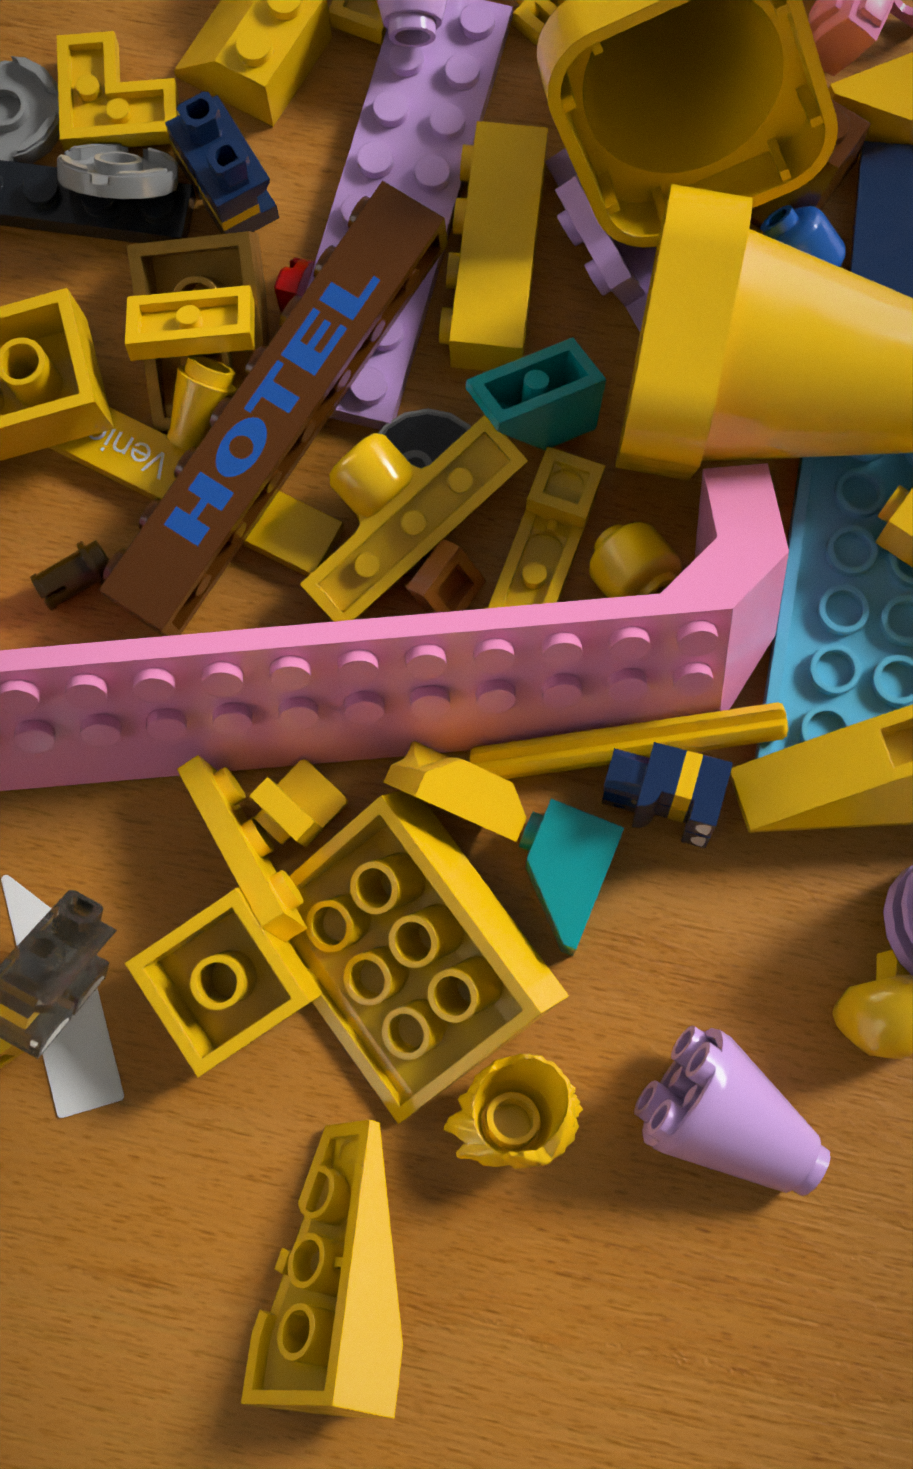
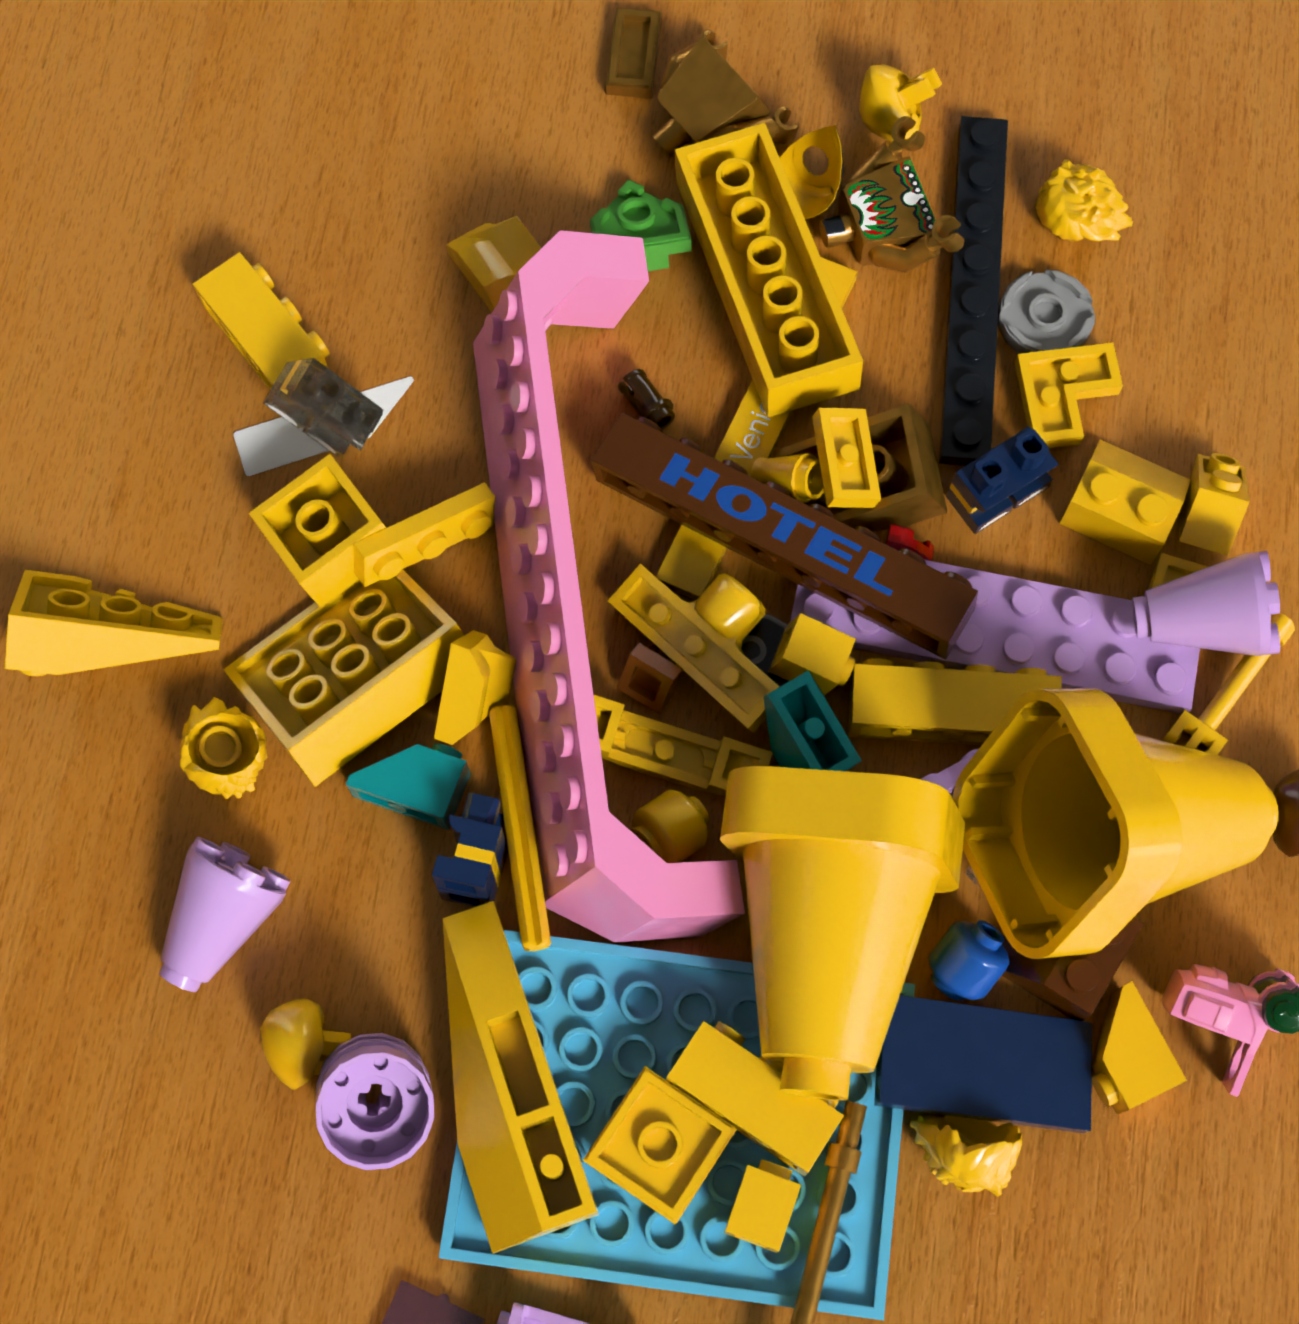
camera: 85 degrees right, 5 degrees down
(114, 173) = (987, 397): light grey tile -> none
(298, 804) = (461, 574): yellow bracket -> none
(431, 389) = (814, 648): none -> yellow brick

